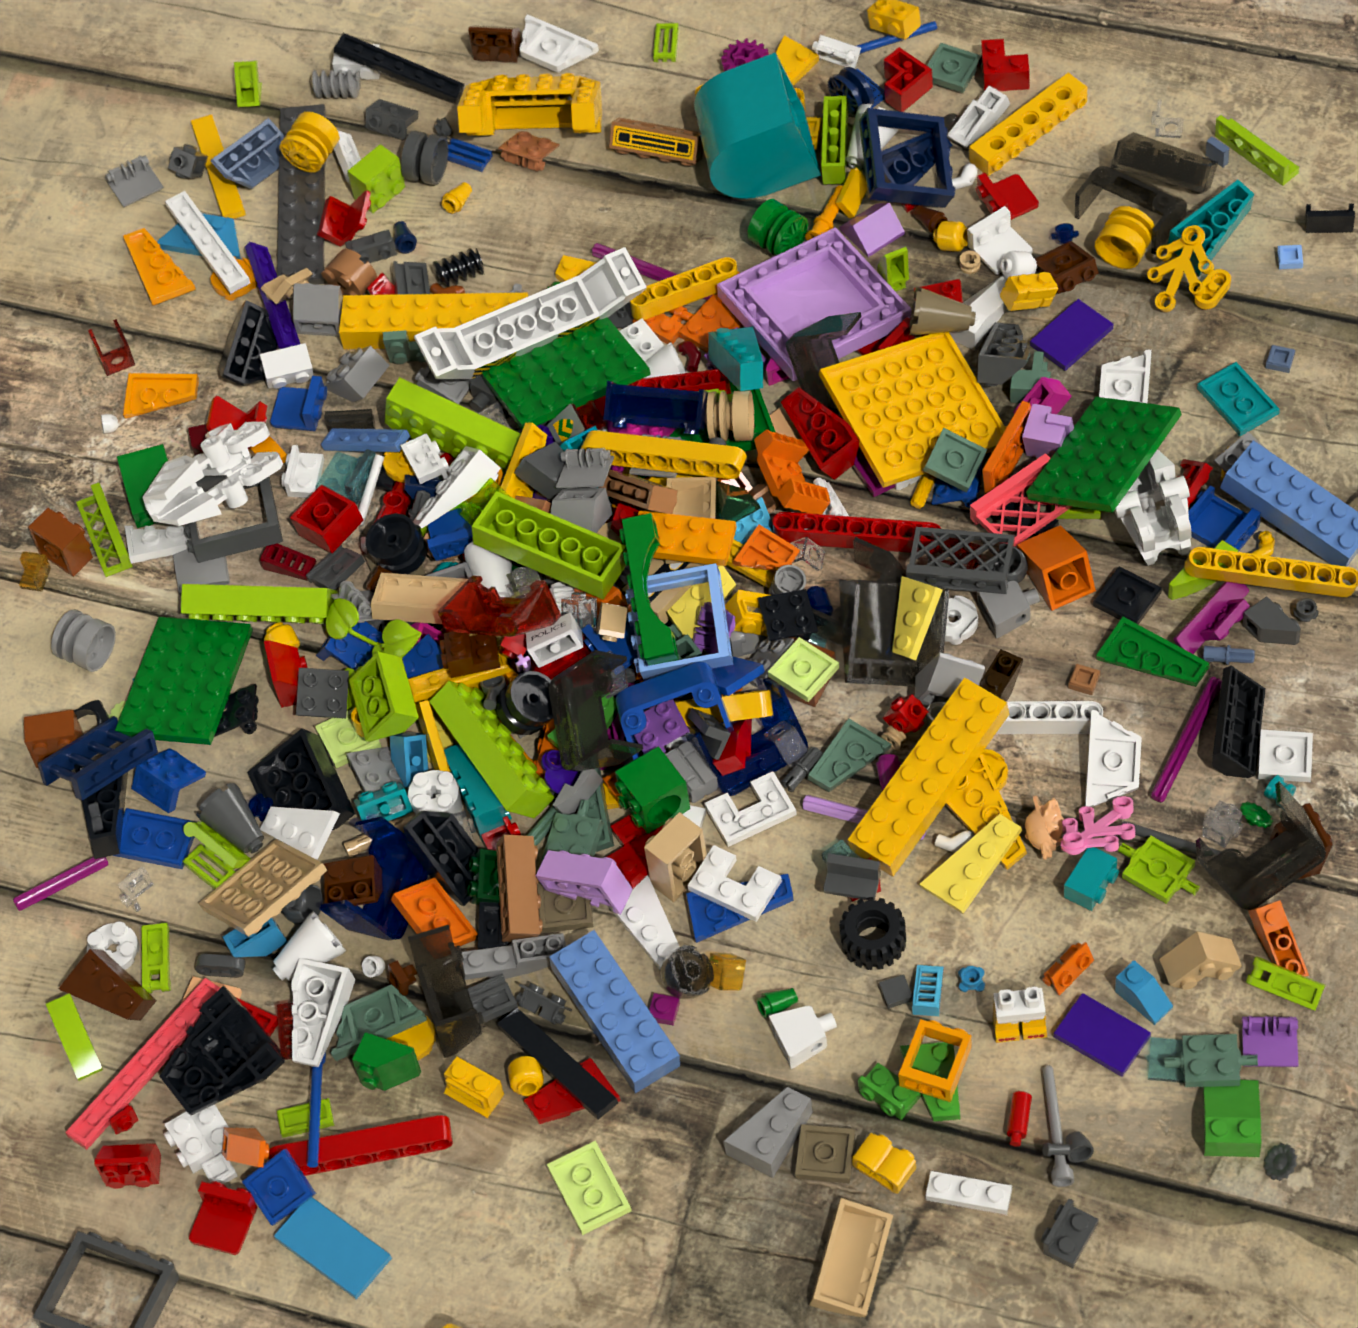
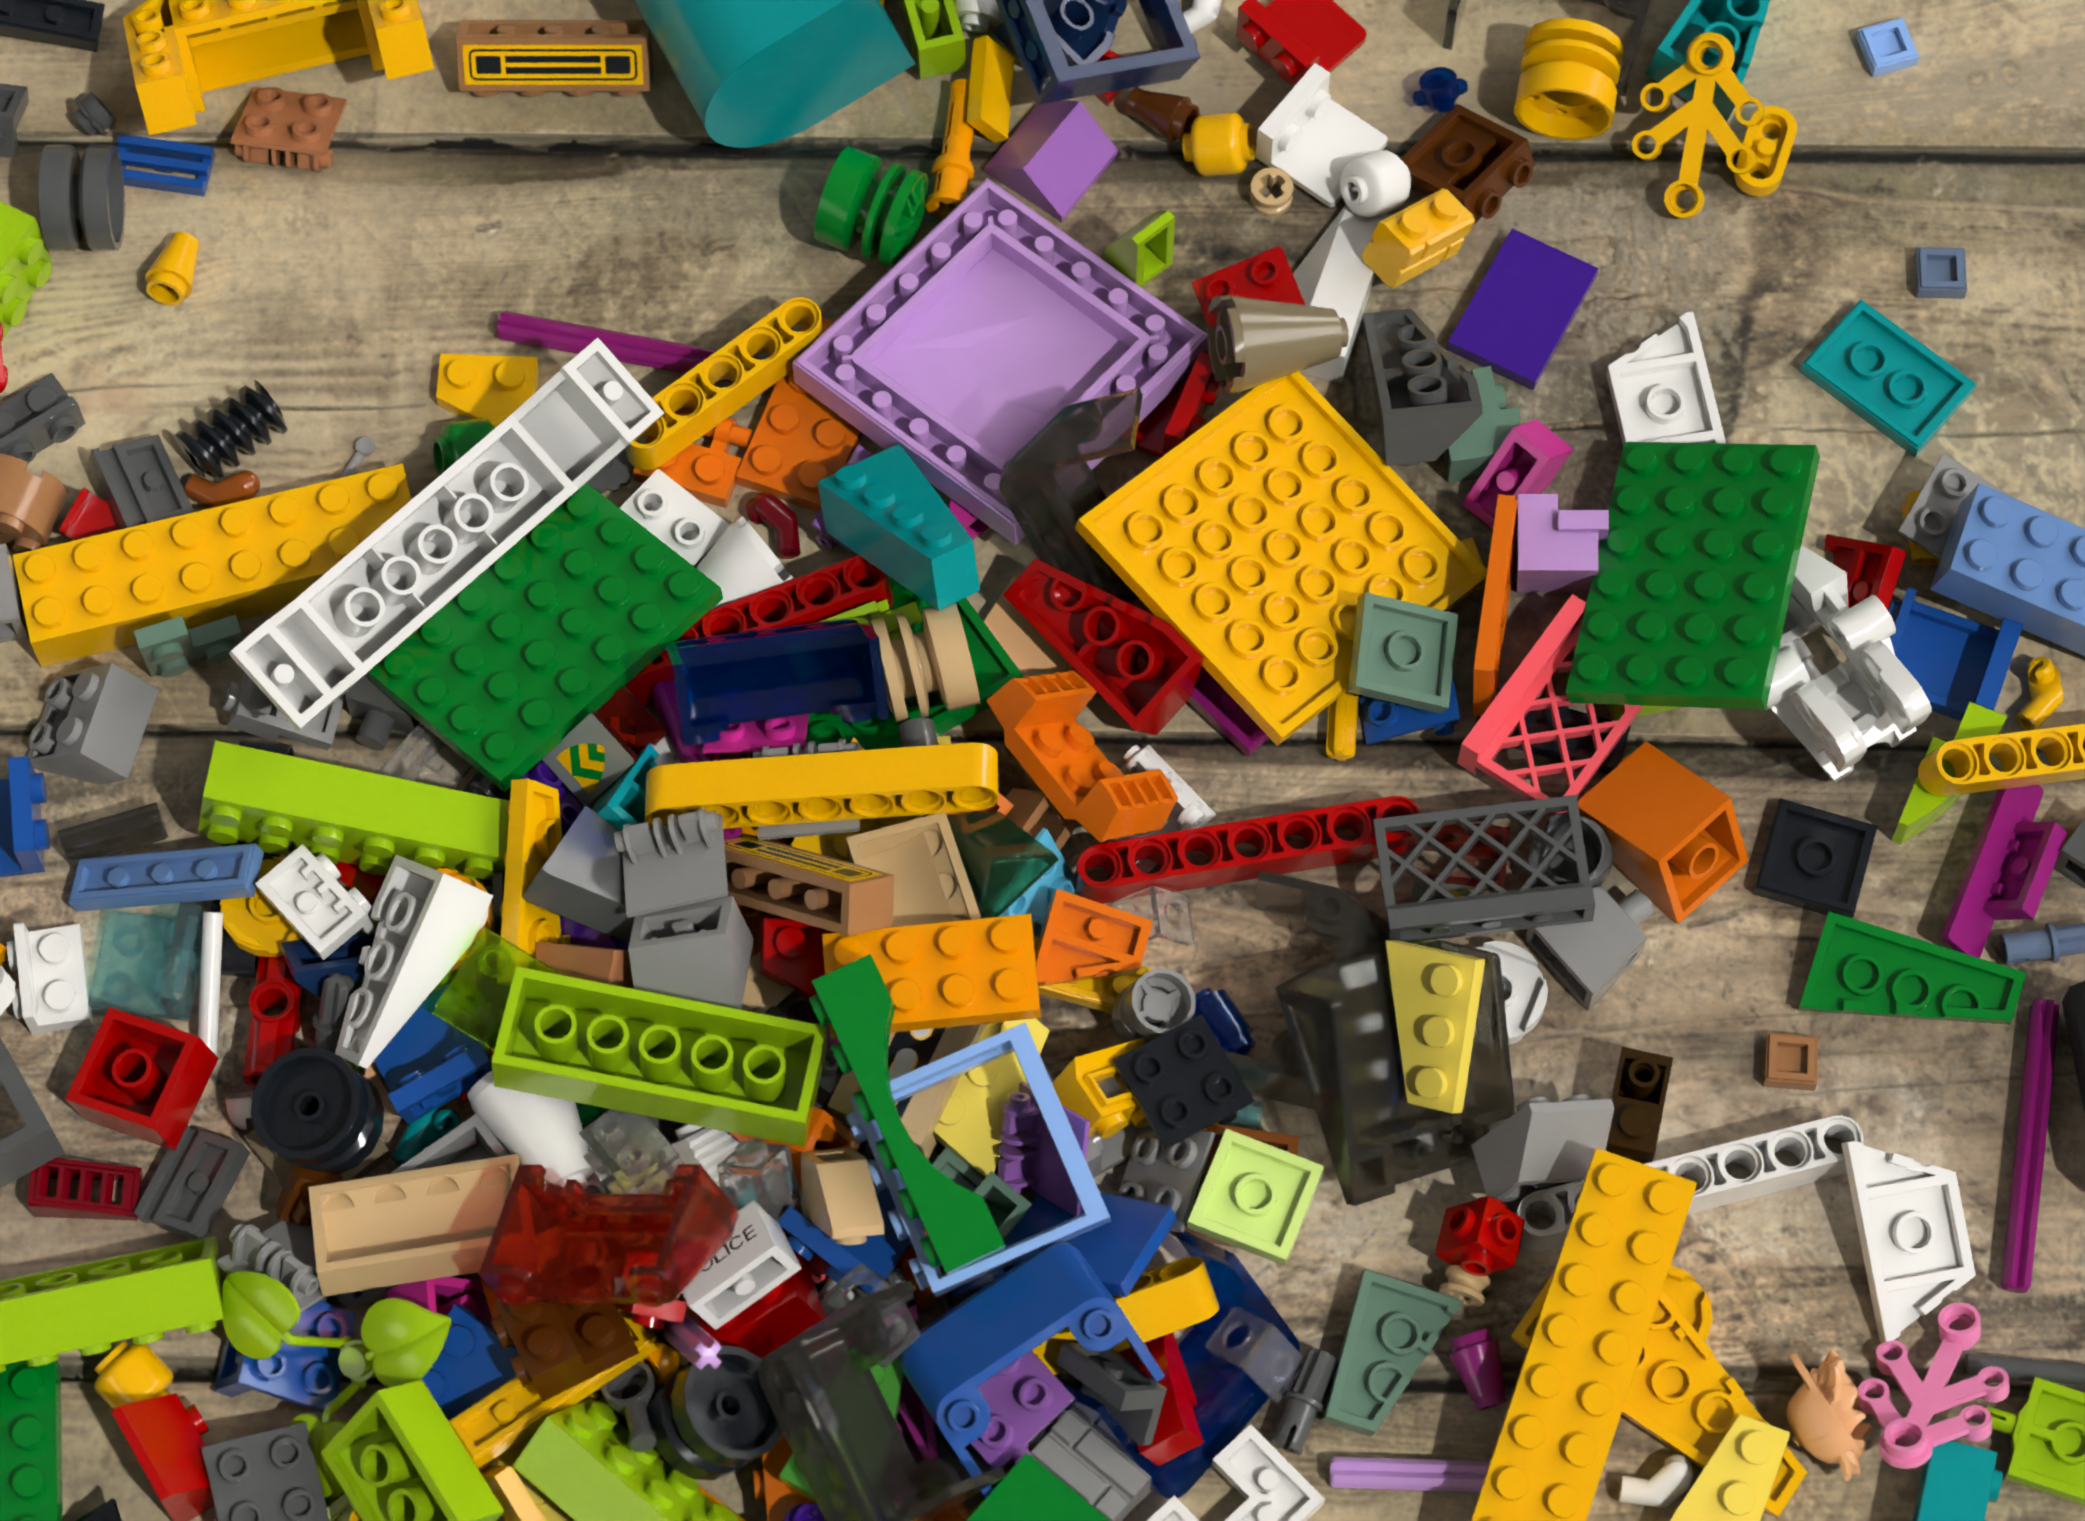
camera: 25 degrees left, 10 degrees up
(404, 238) = (91, 385): dark blue cone -> none

